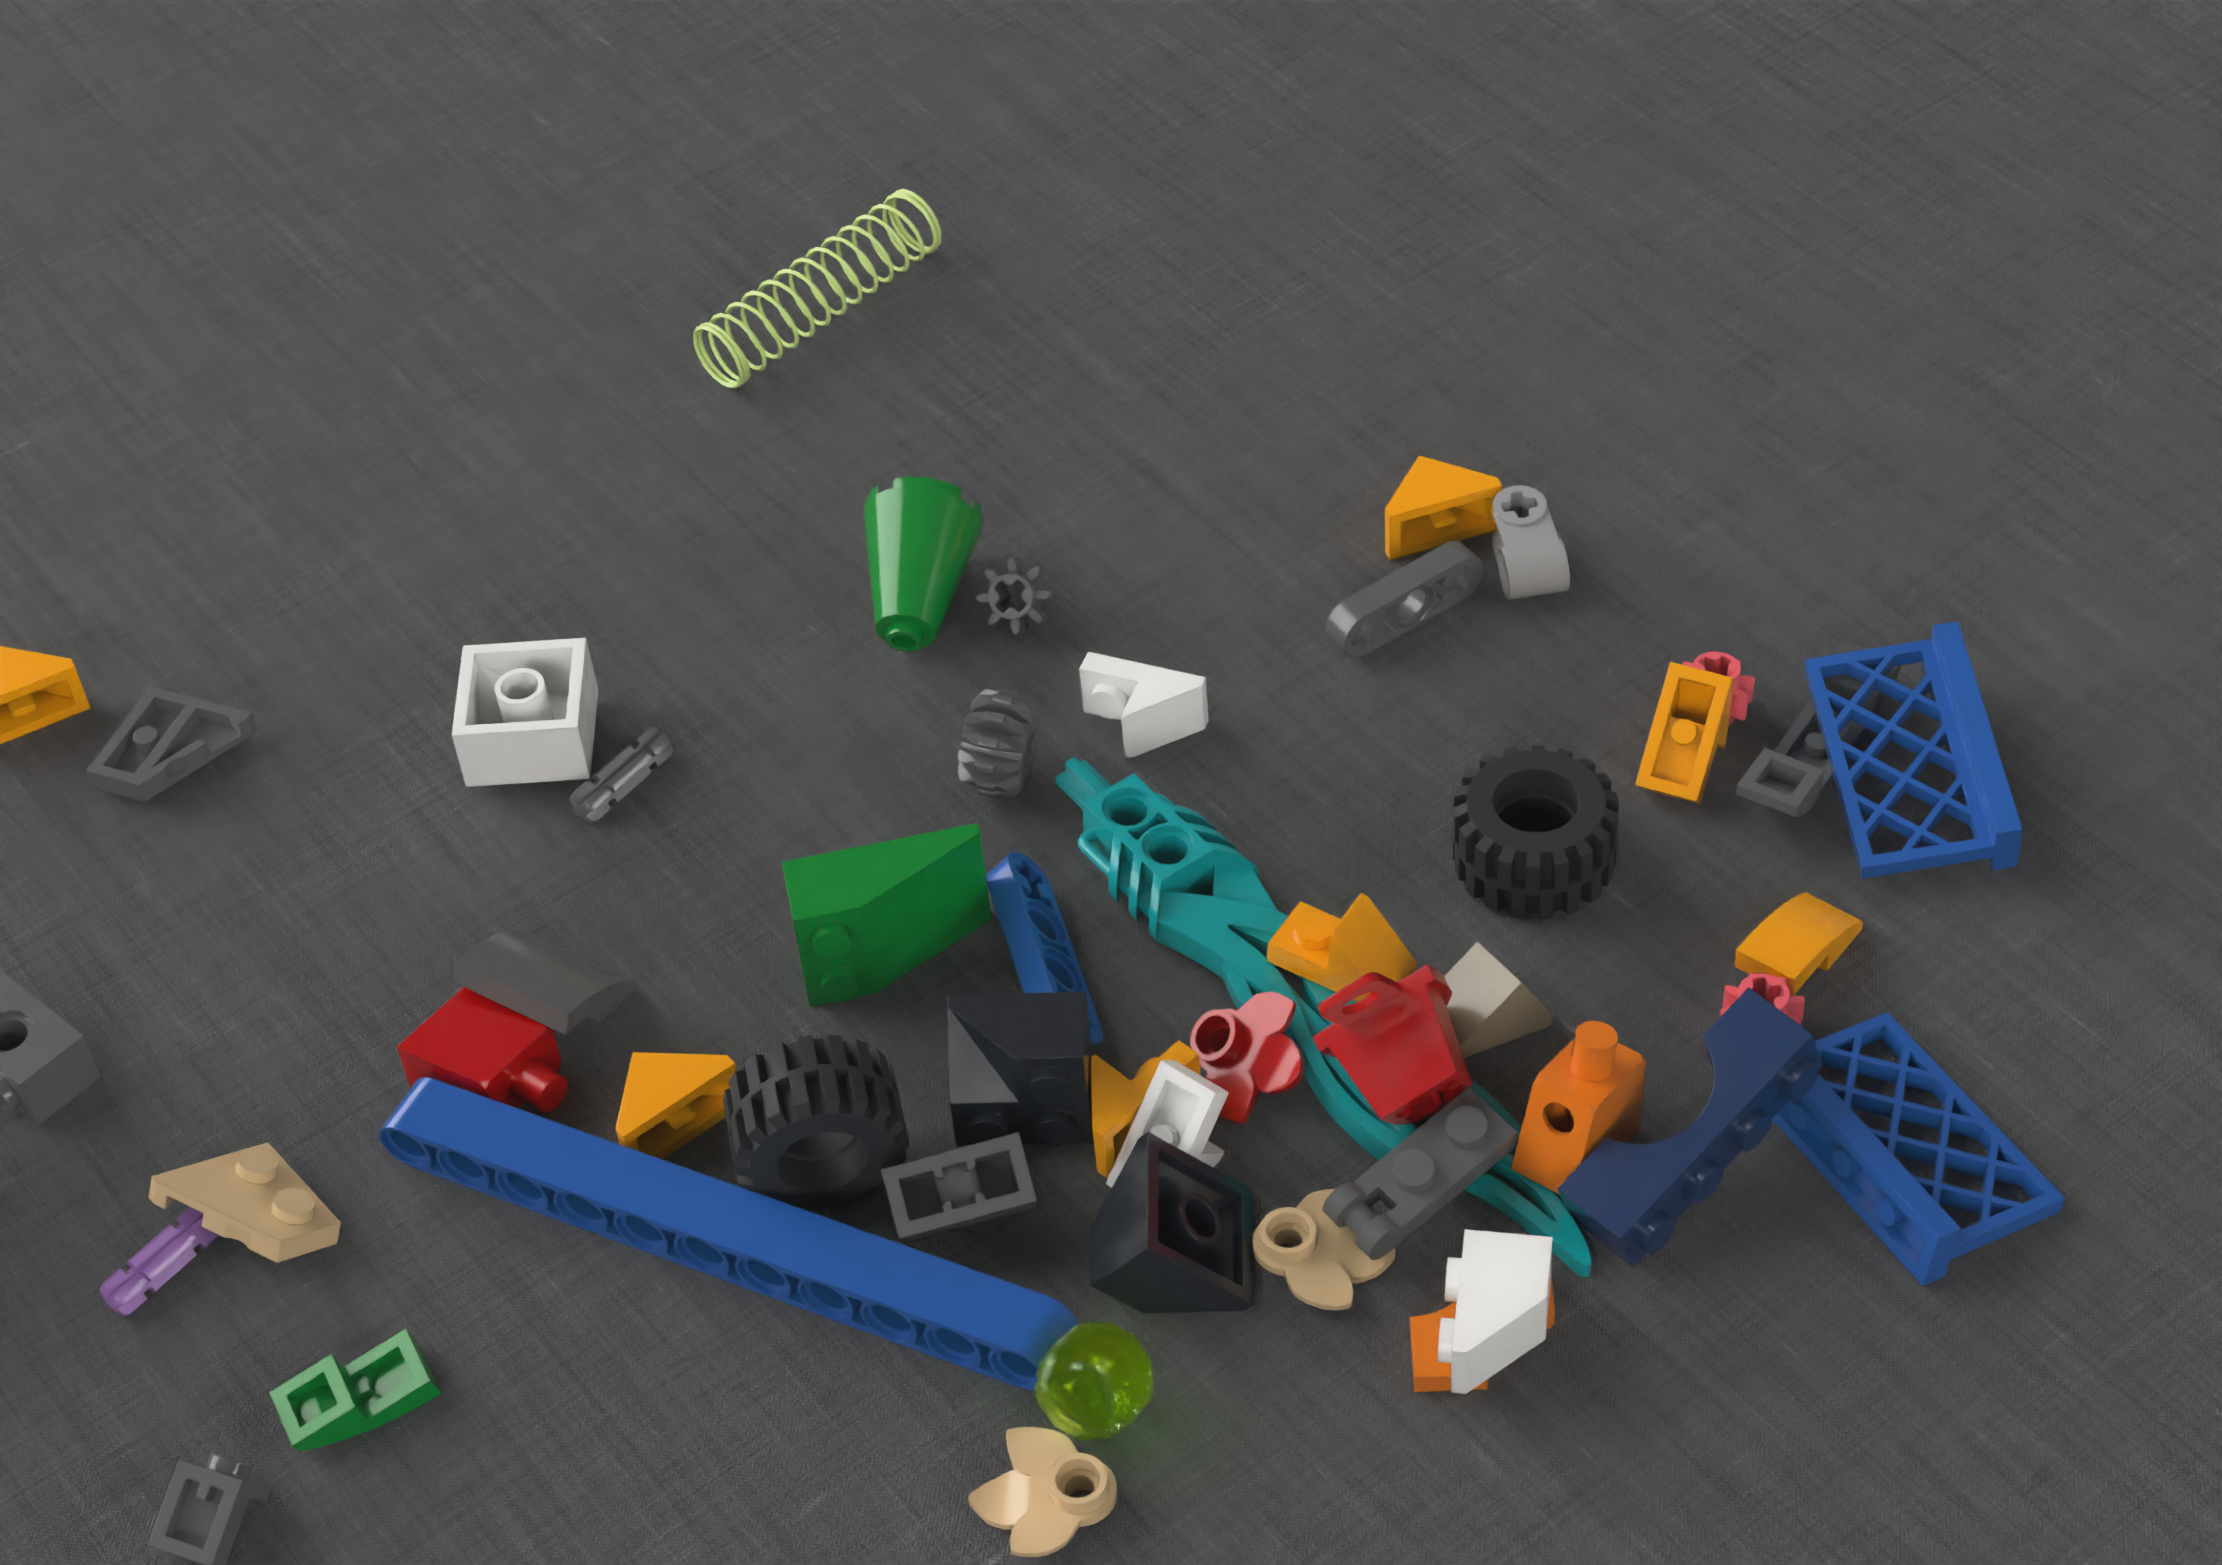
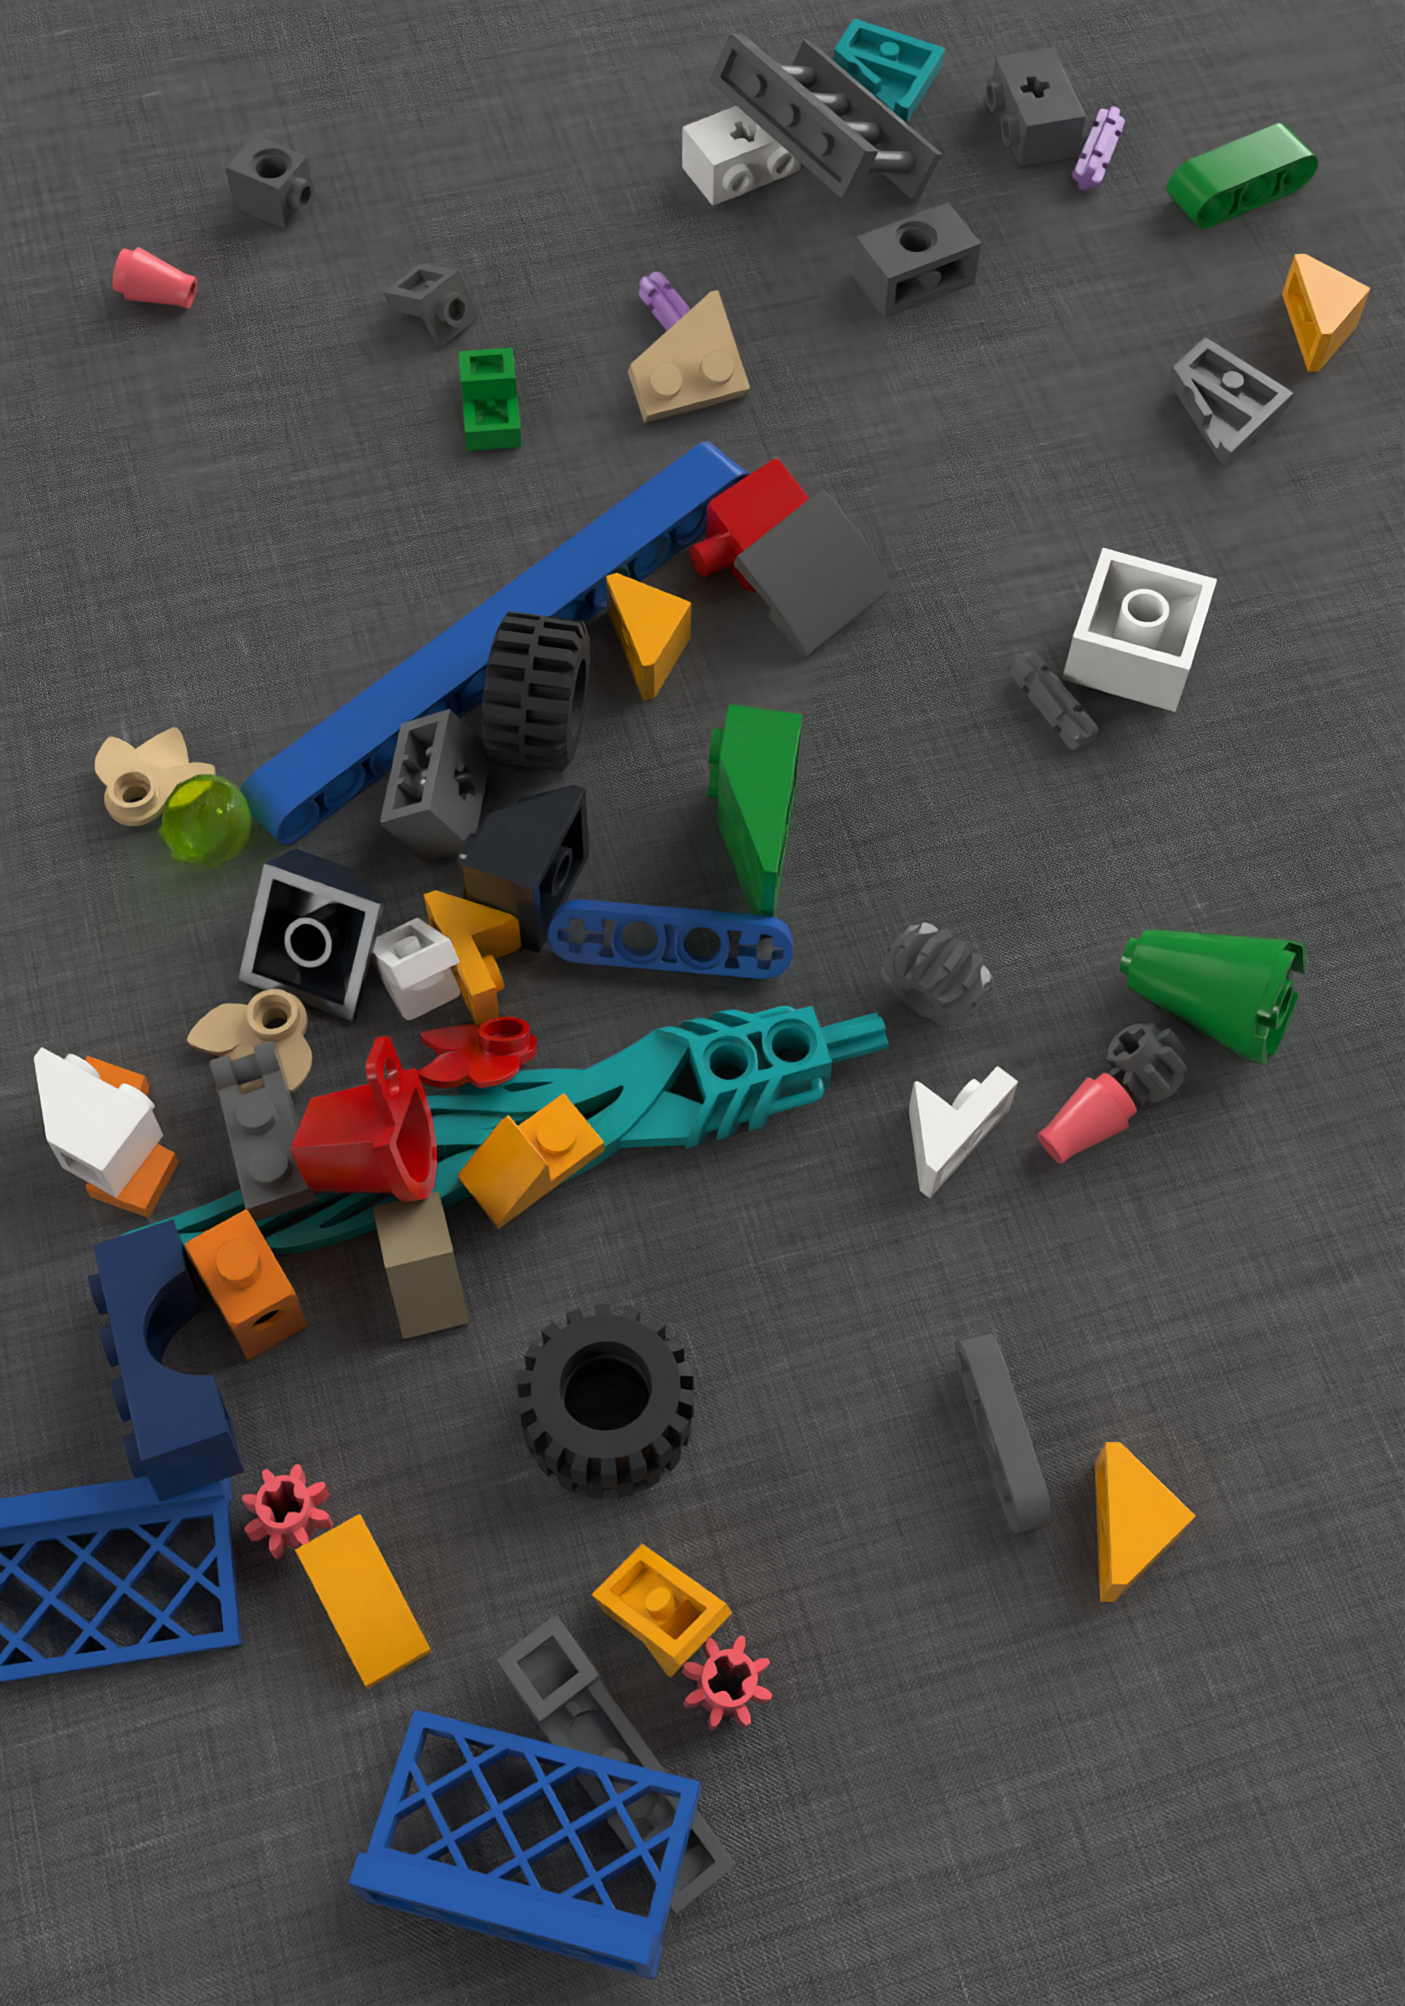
camera: 105 degrees right, 15 degrees up
(1084, 625) = (1089, 1117): none -> coral cone
(1527, 545) = (1020, 1587): light grey piece -> none

